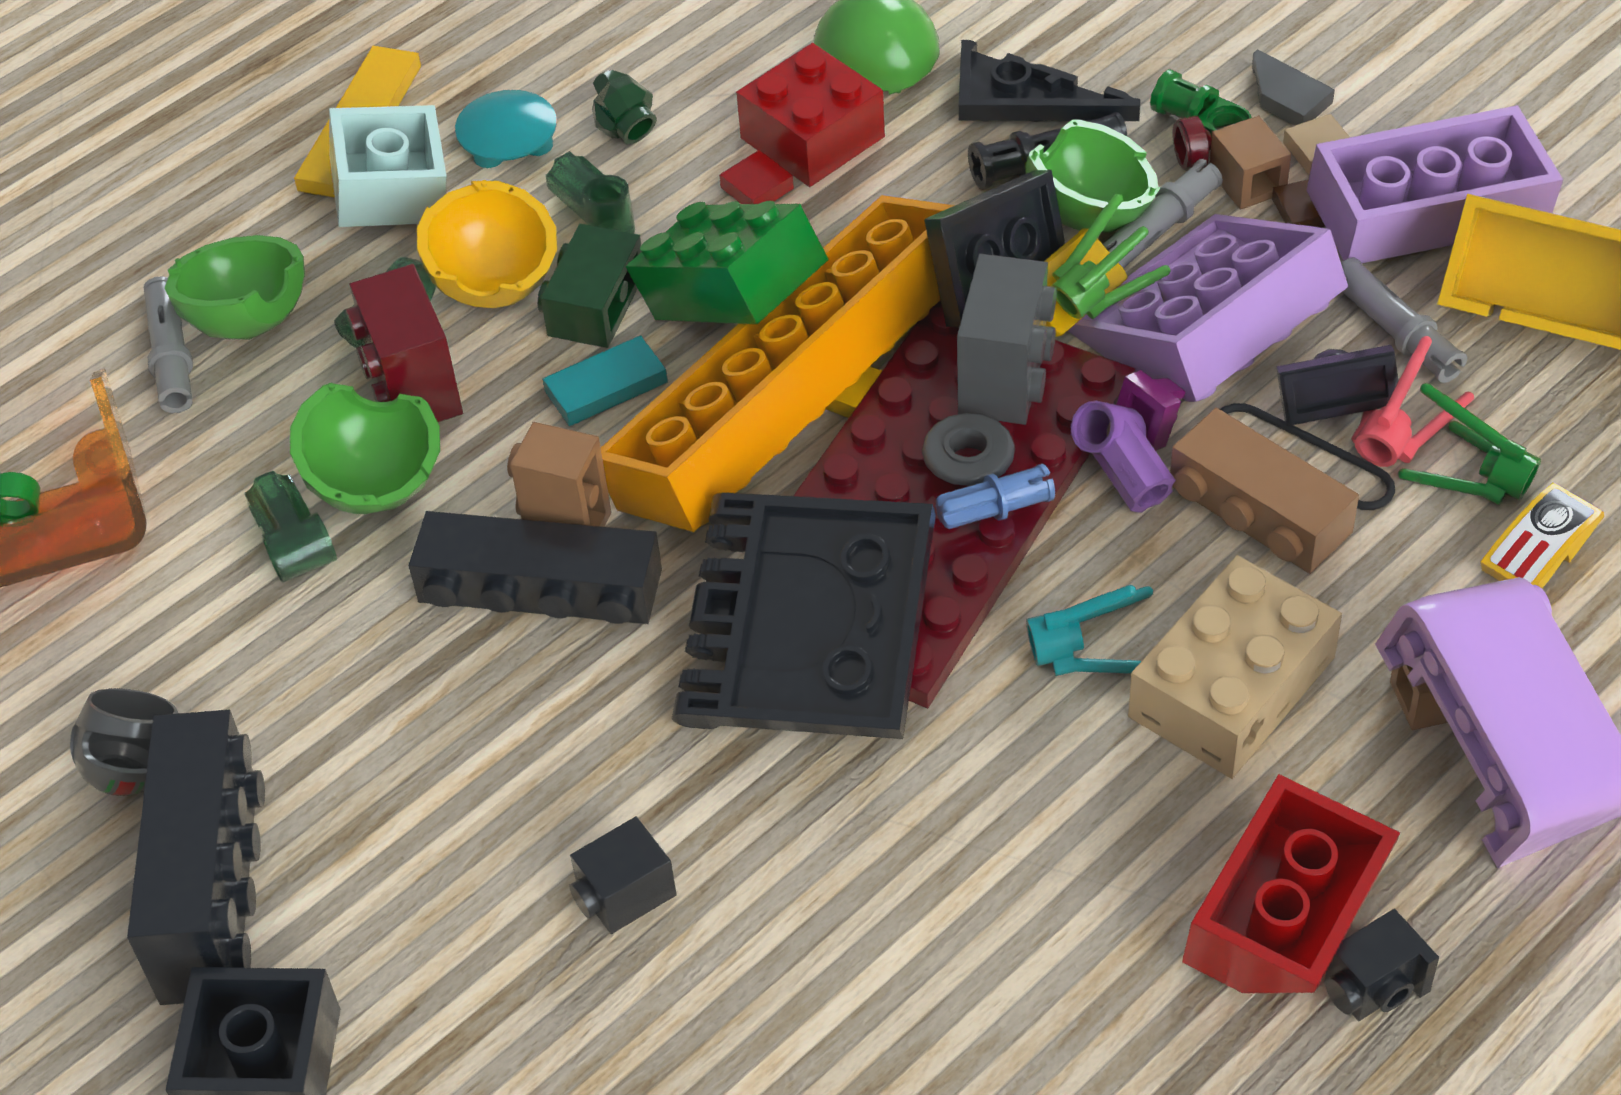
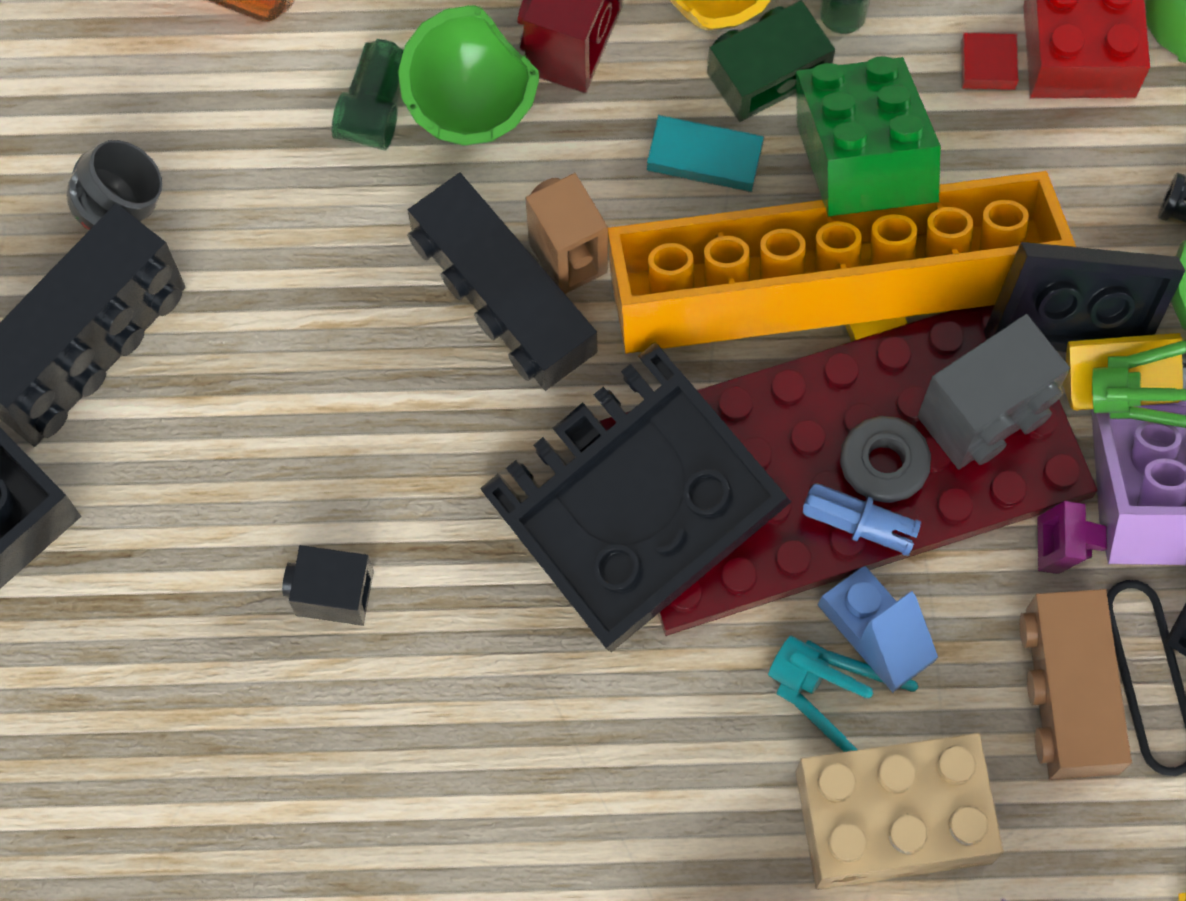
camera: 40 degrees right, 20 degrees up
(1082, 568) = (882, 630): none -> medium blue slope
(1124, 453) = (1011, 542): medium lavender piece -> none

